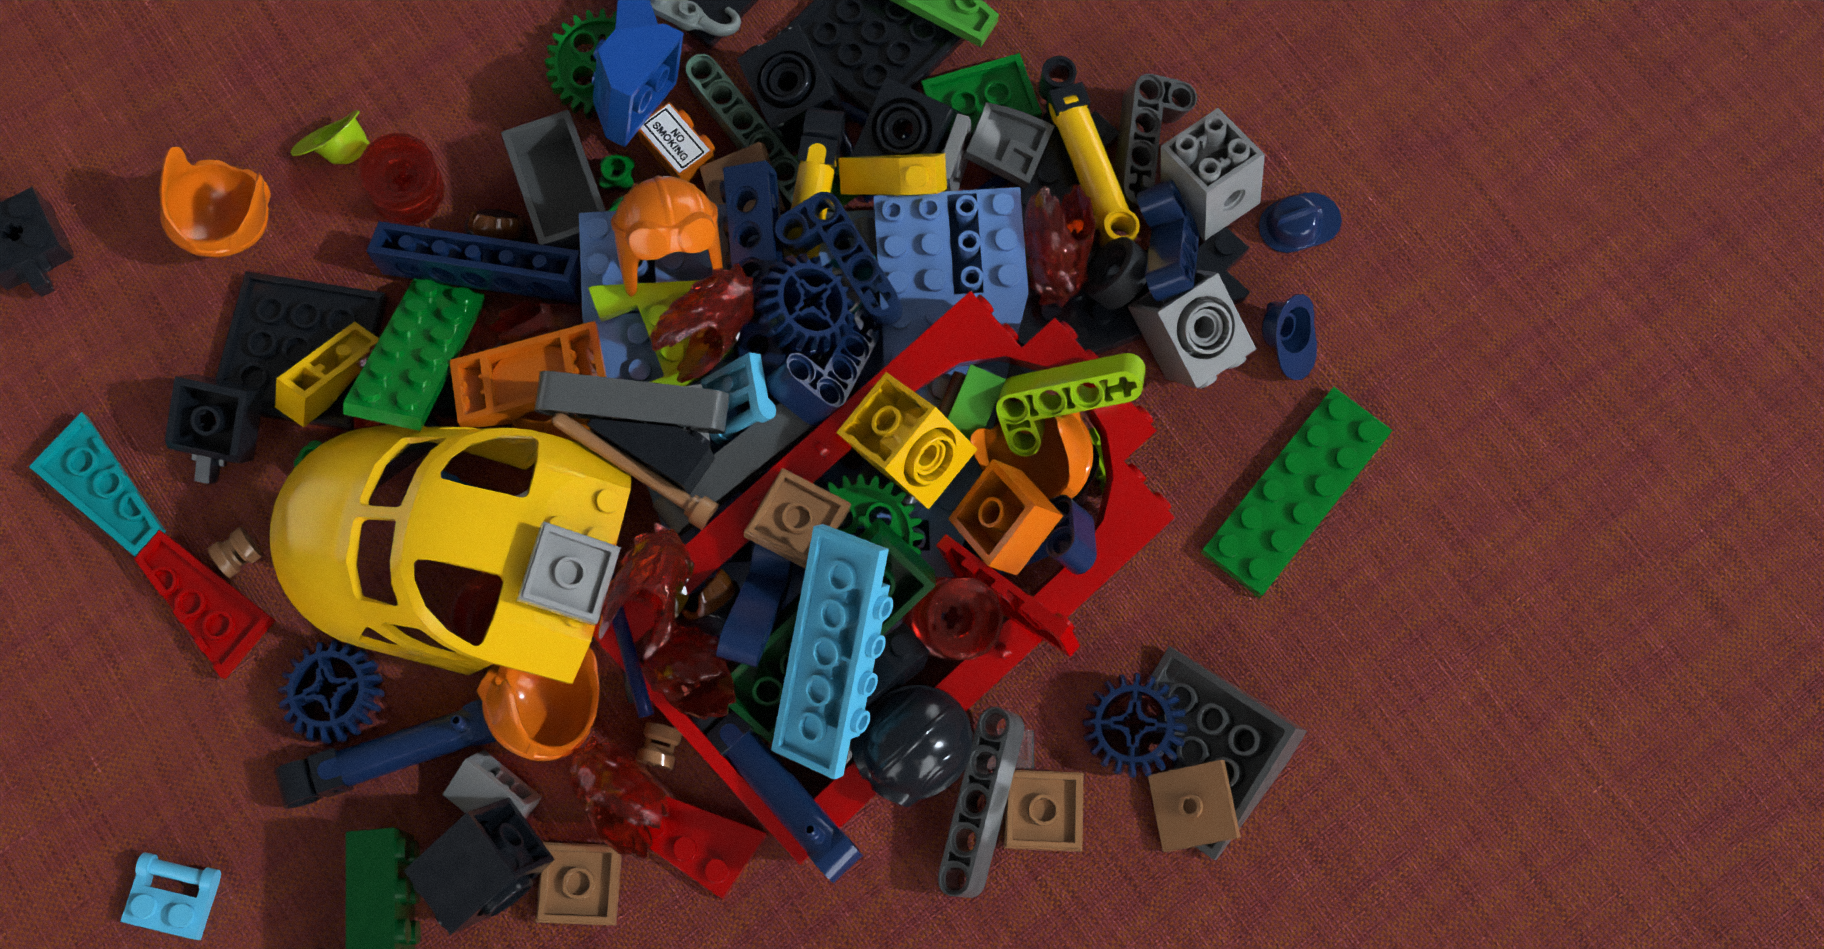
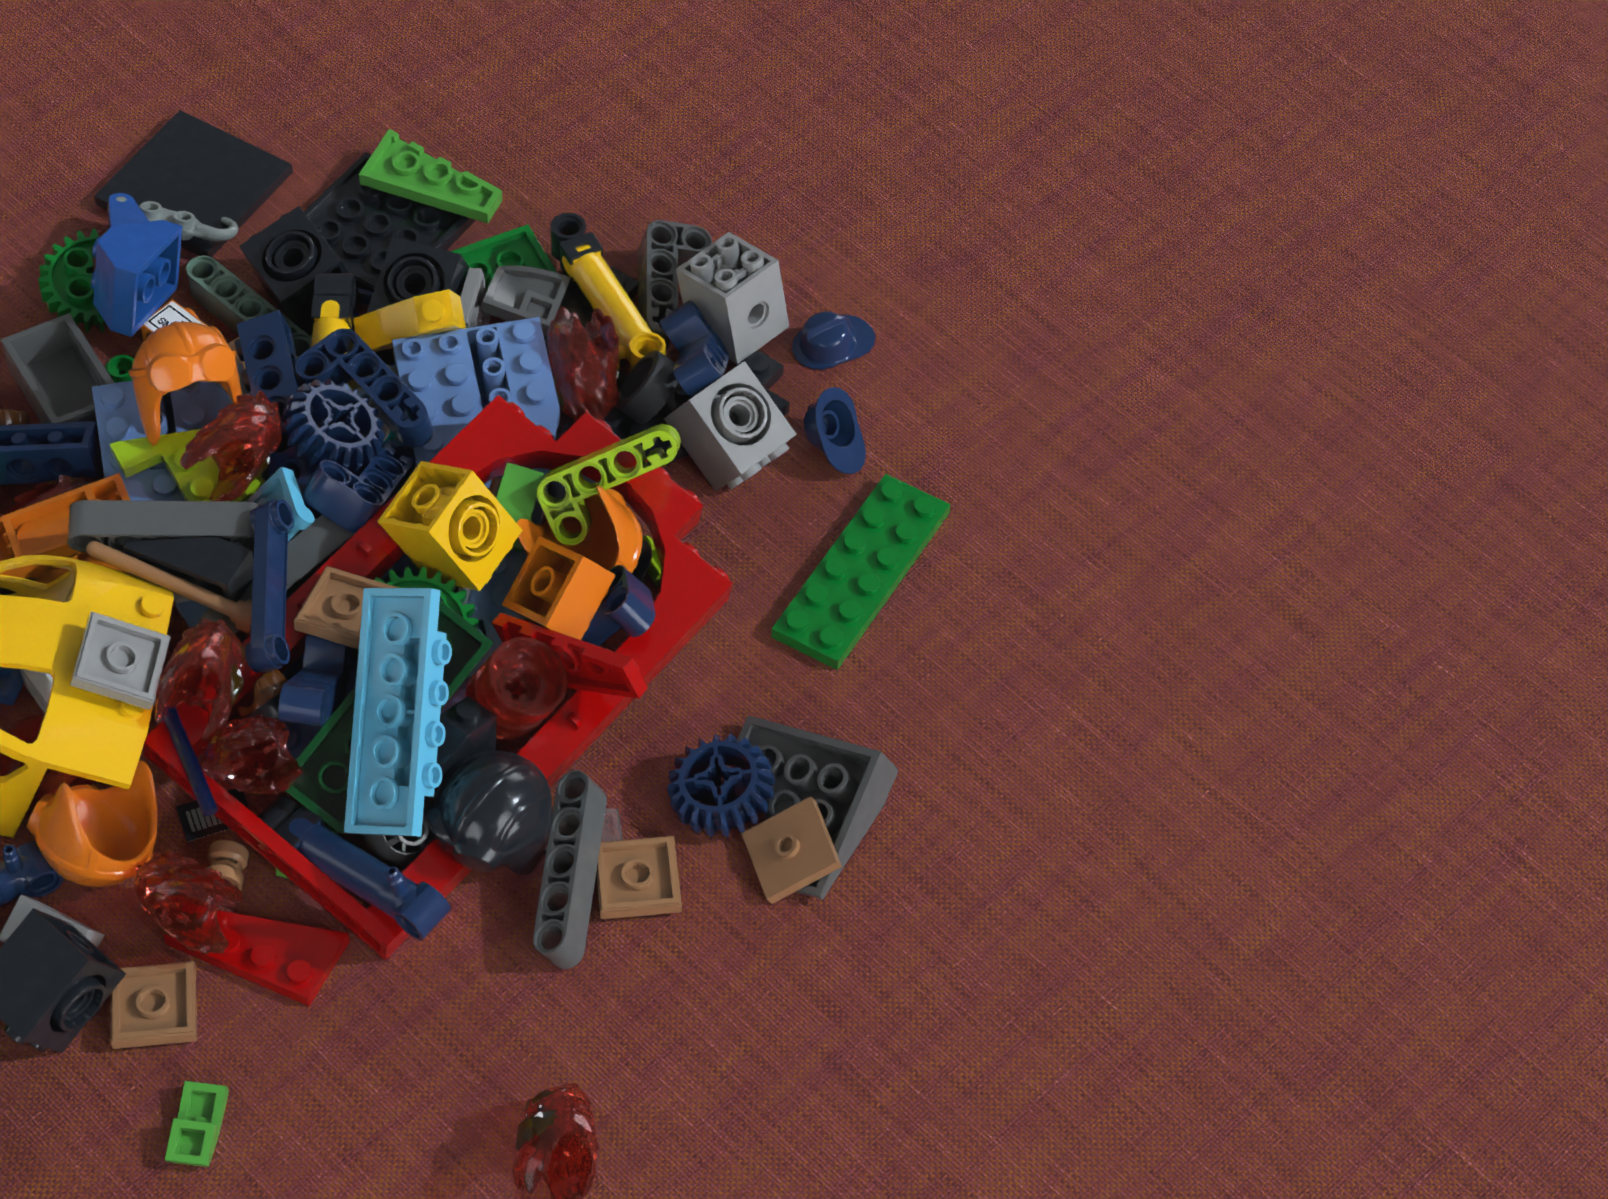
camera: 10 degrees left, 20 degrees down
(716, 561) = (268, 619): none -> dark blue piece

